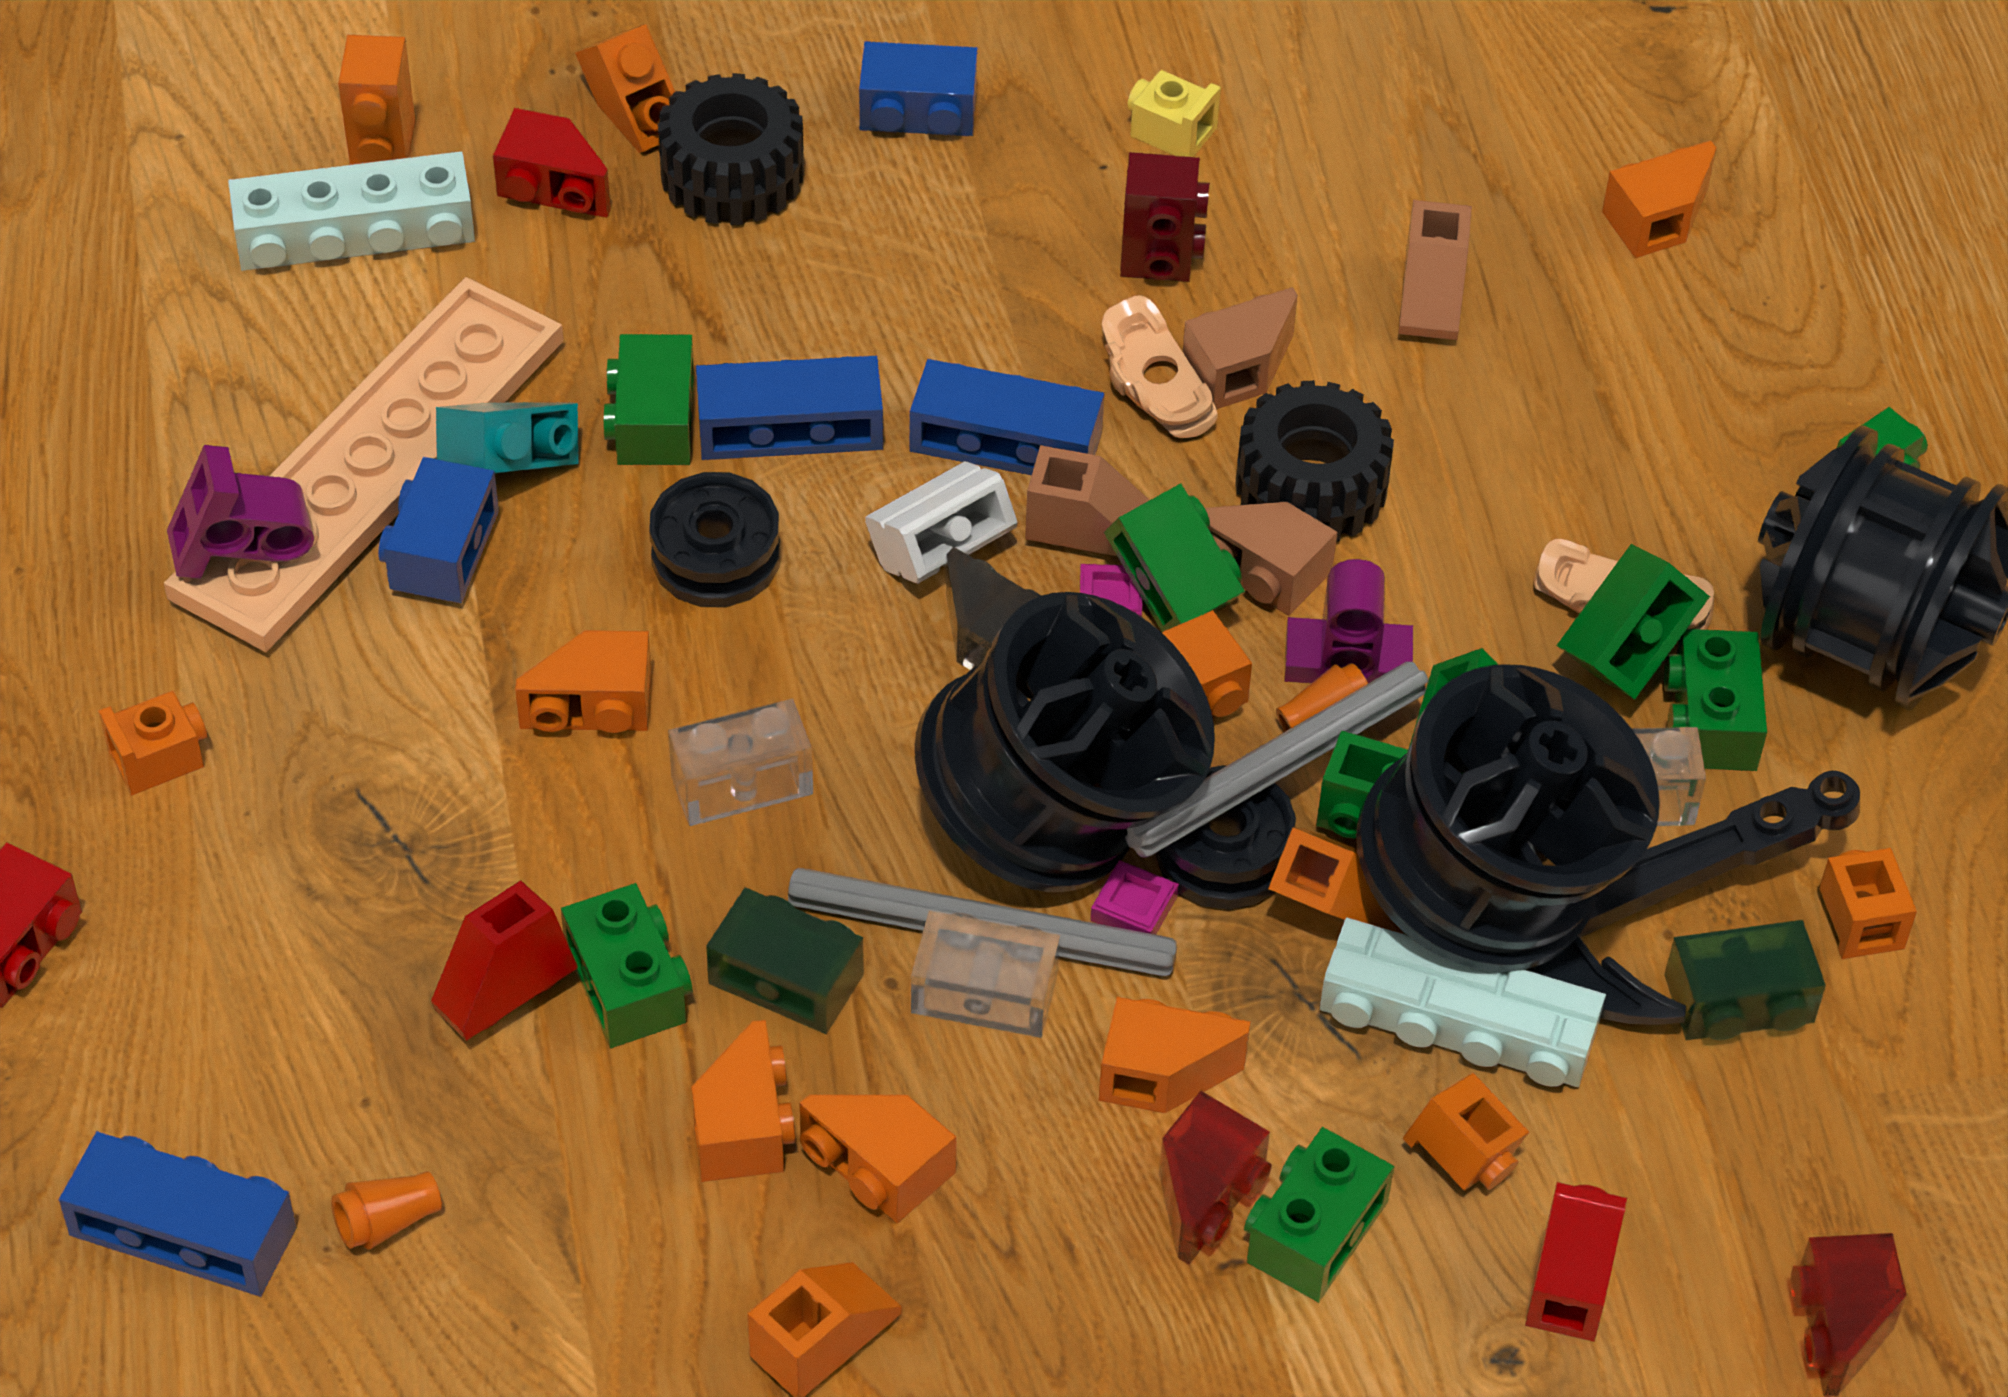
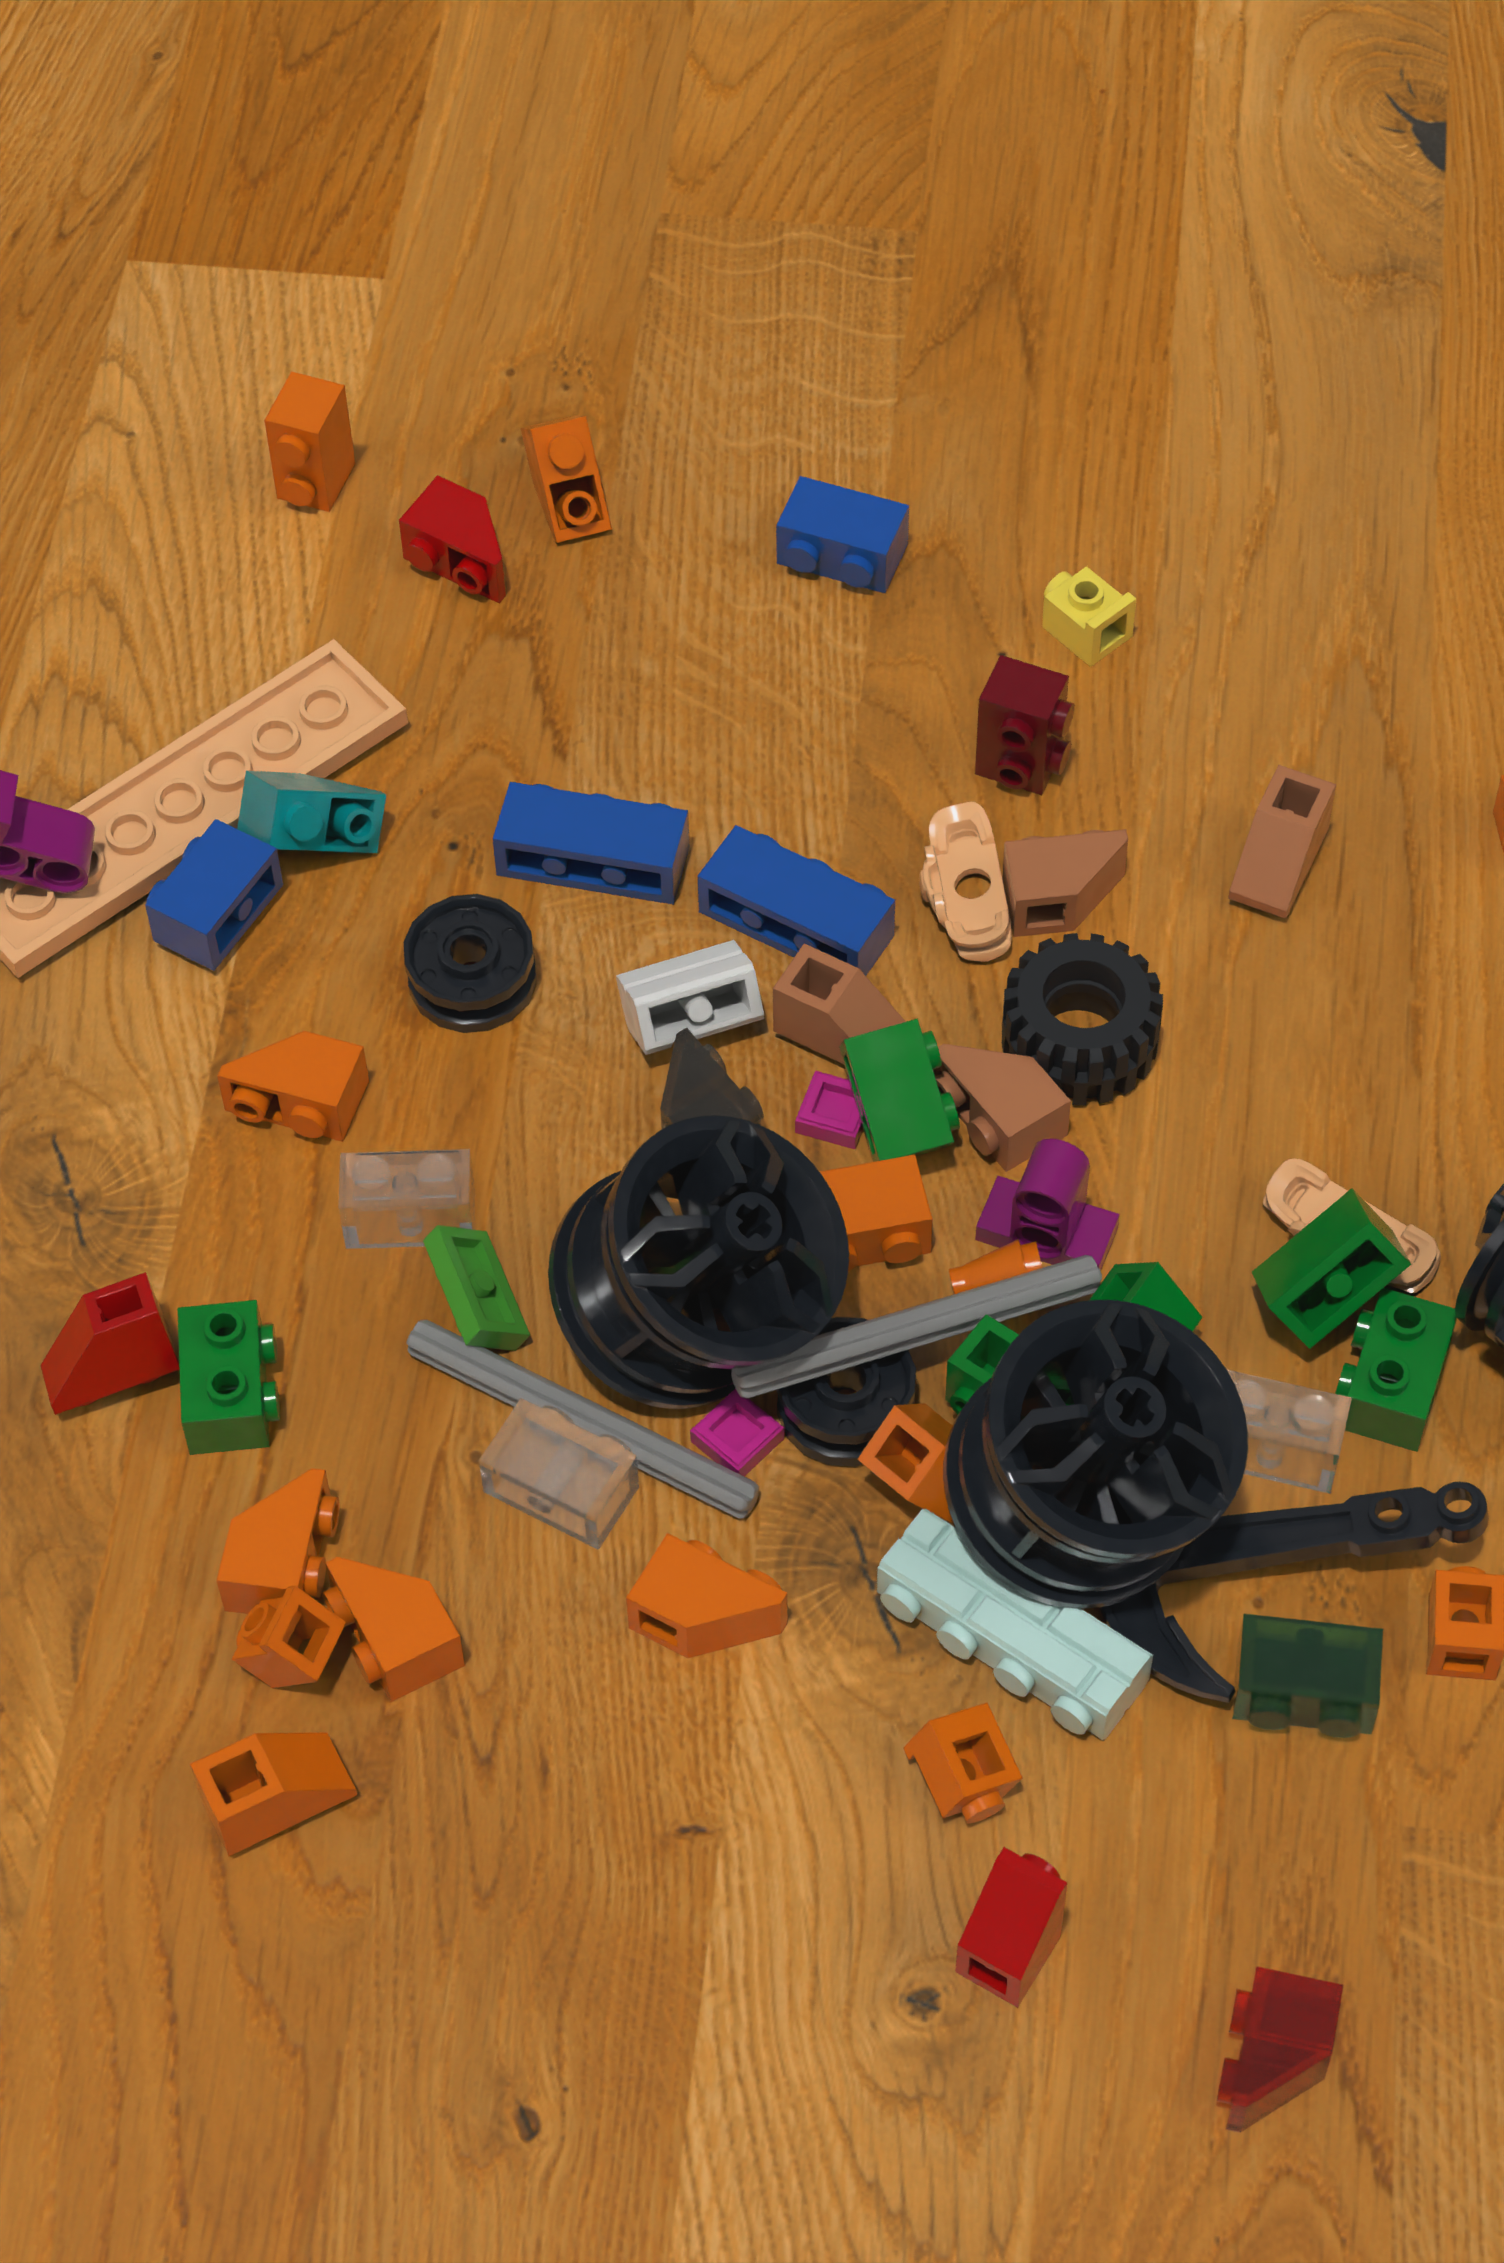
camera: 20 degrees right, 5 degrees up
(351, 211) = (318, 555): light aqua brick -> none
(652, 399) = (462, 804): green brick -> none
(731, 148) = (633, 526): black tyre -> none
(771, 1186) = (274, 1633): none -> orange brick
(785, 959) = (377, 1409): clear green brick -> none
(837, 827) = (476, 1288): none -> bright green plate
(1206, 1169) = (696, 1730): clear red slope -> none
(1318, 1213) = (787, 1804): green brick -> none

